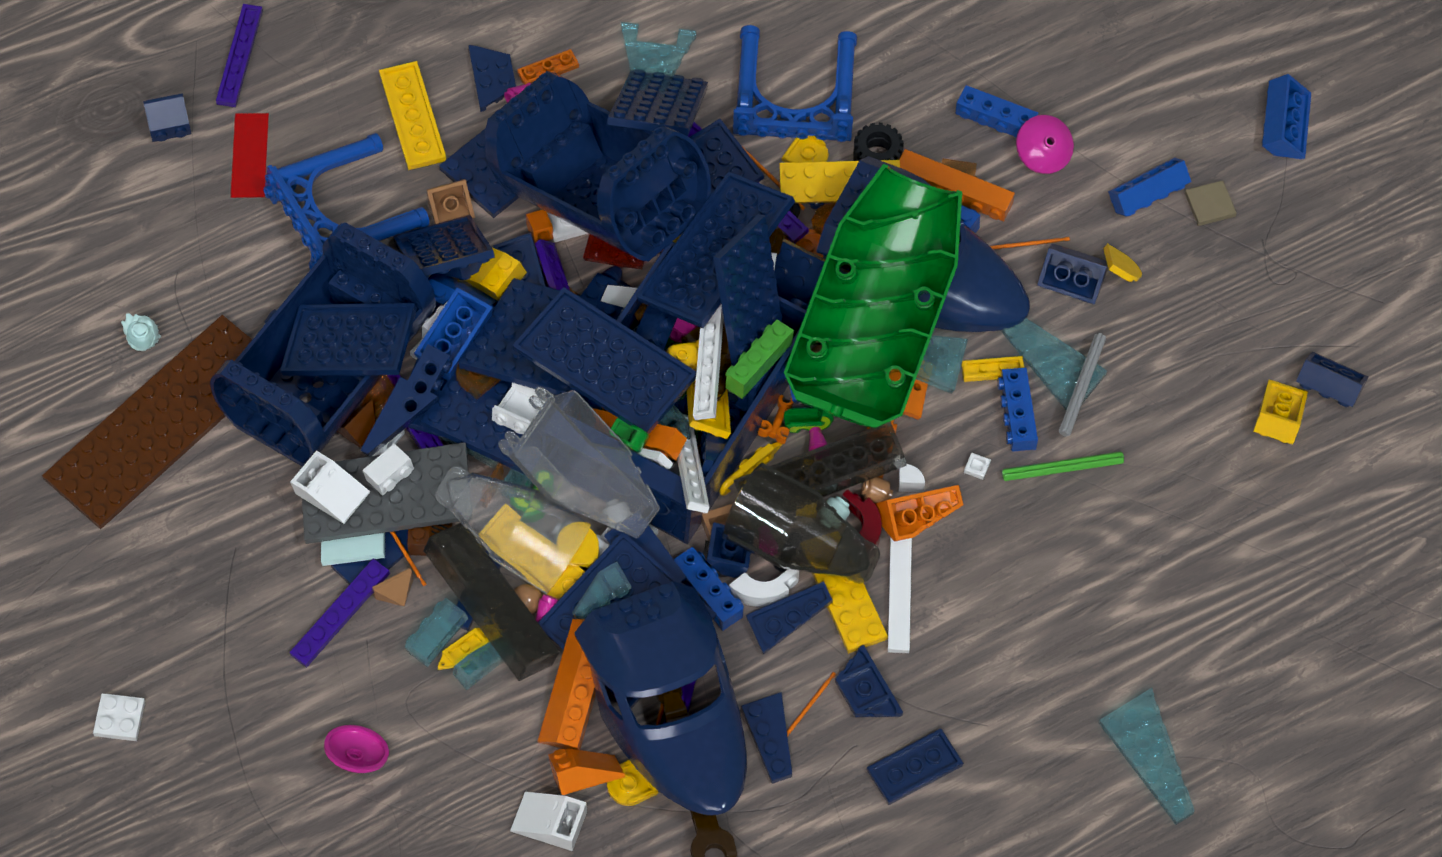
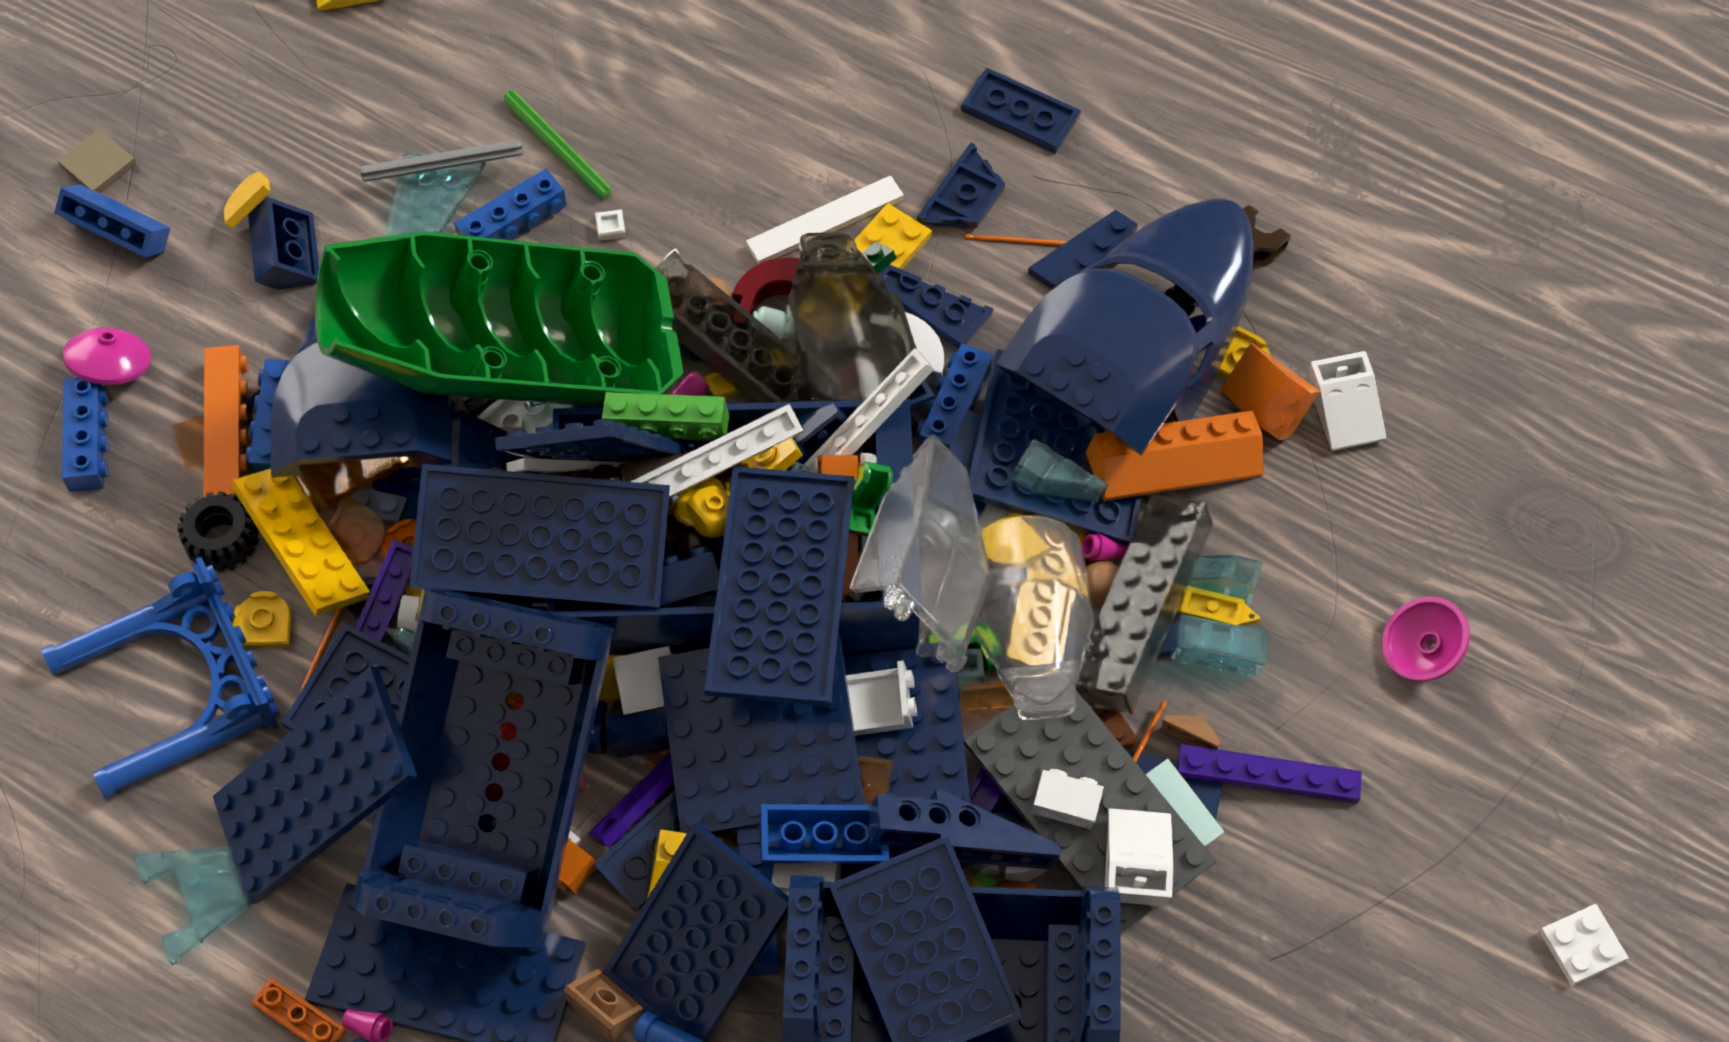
camera: 120 degrees left, 0 degrees up
(841, 595) = (879, 256): none -> dark green plate
(913, 513) = (713, 249): orange wedge -> none
(1030, 243) = (263, 318): orange piece -> none

